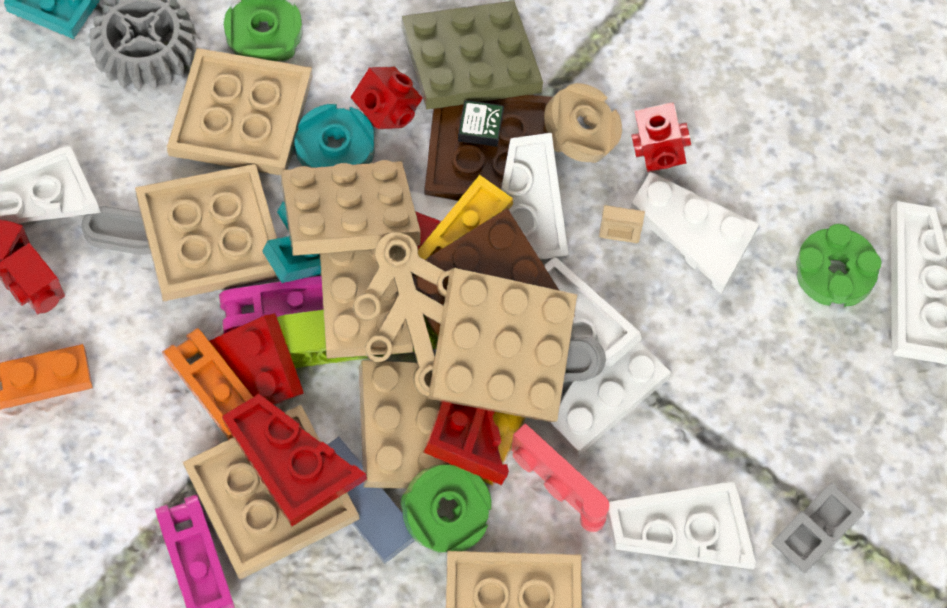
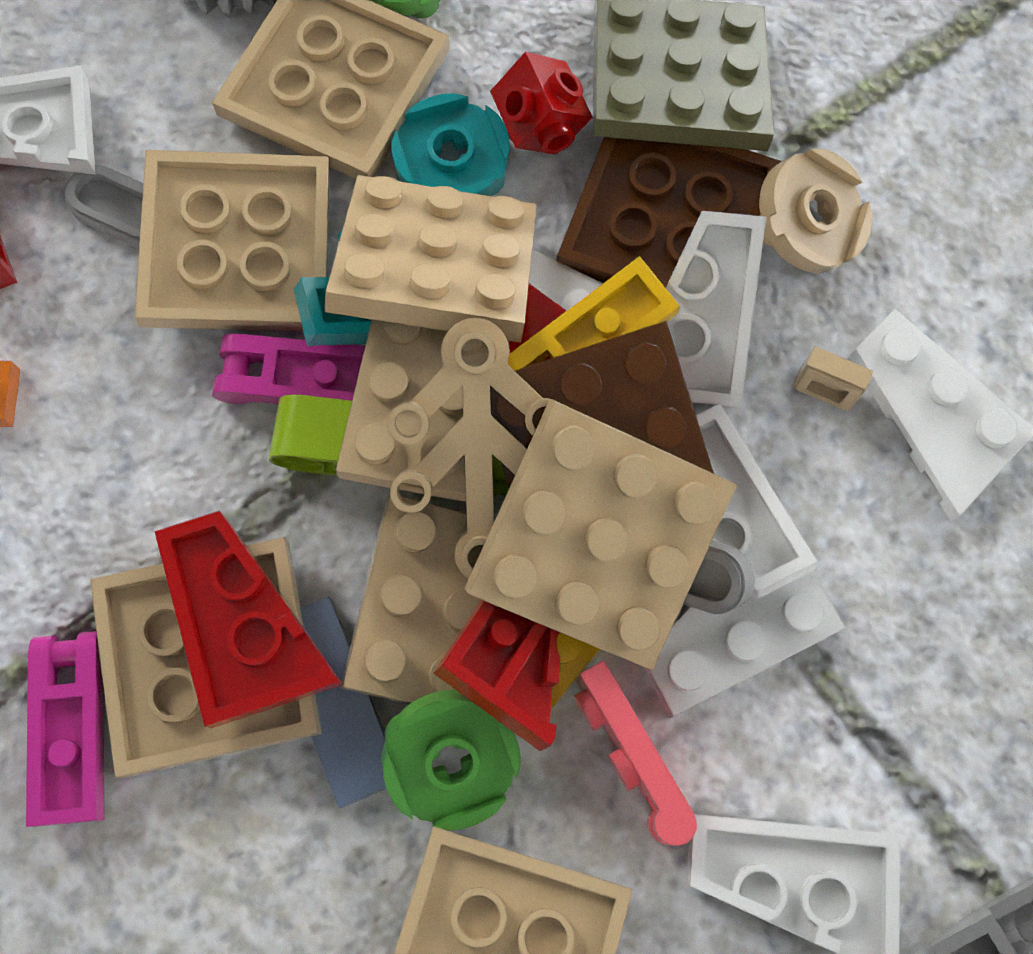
camera: 15 degrees right, 10 degrees up
(208, 377) = (170, 457): orange plate -> none
(260, 359) = (247, 455): red wing -> none
(481, 123) = (666, 175): tile -> none
(662, 145) = (926, 261): red brick -> none

